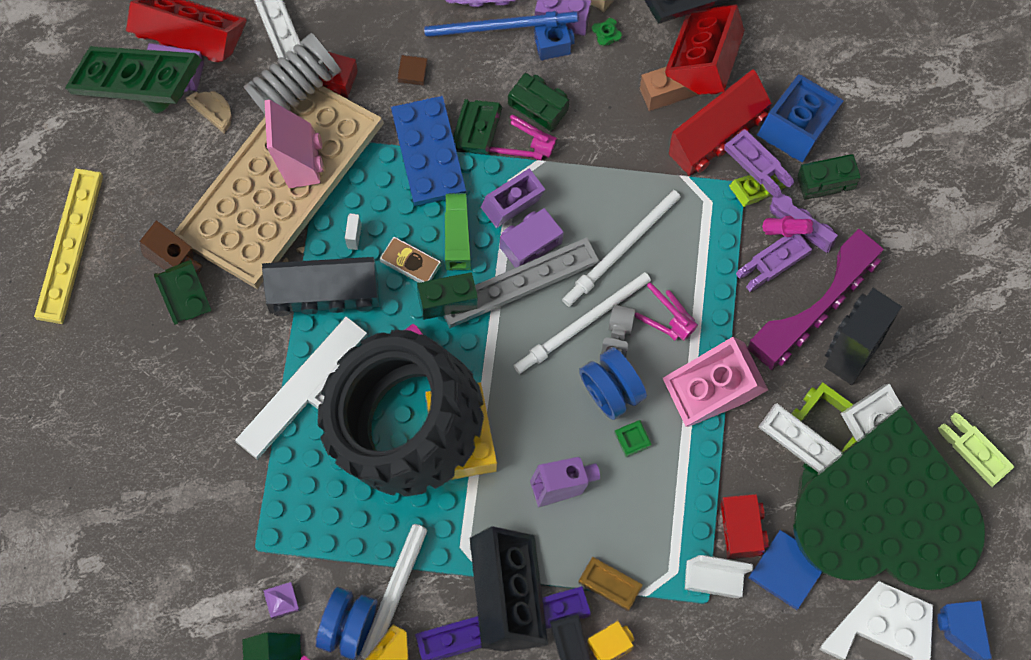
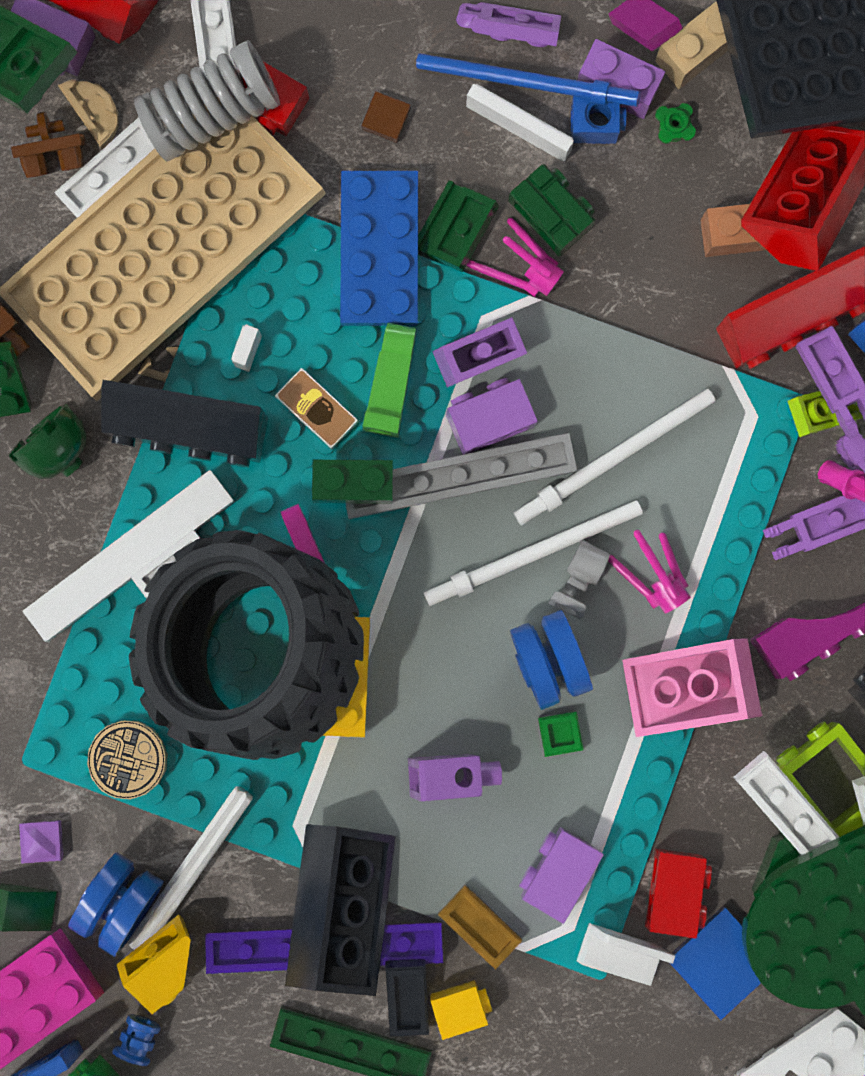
camera: 15 degrees right, 15 degrees up
(178, 142) = (32, 154): none -> reddish brown hips
(230, 142) = (105, 169): none -> white tile
(233, 326) = (52, 445): none -> dark green cylinder
(293, 146) = (183, 209): bright pink slope -> none
(331, 525) = (127, 759): none -> tile
(503, 53) = (519, 122): none -> white tile
(657, 531) = (560, 874): none -> medium lavender brick

